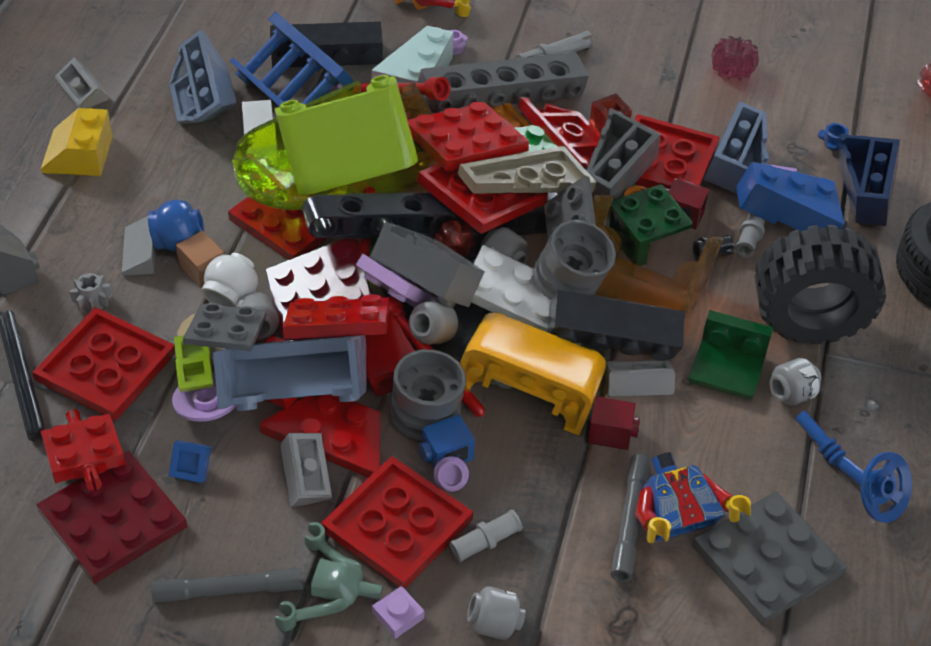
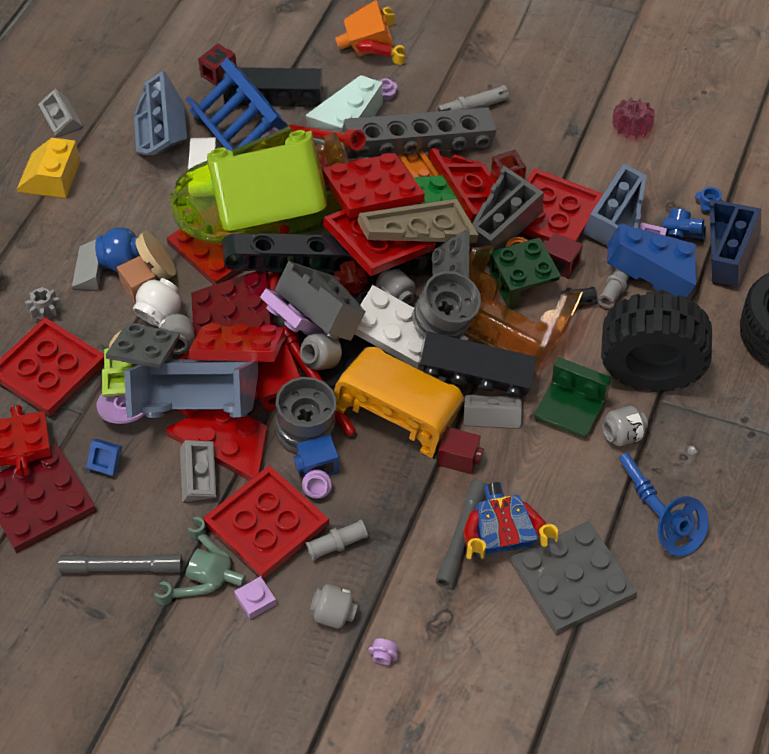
camera: 10 degrees right, 5 degrees up
(220, 229) = (153, 251): none -> tan tile
(254, 24) = (210, 63): none -> dark red brick
(811, 163) = (680, 225): none -> blue plate

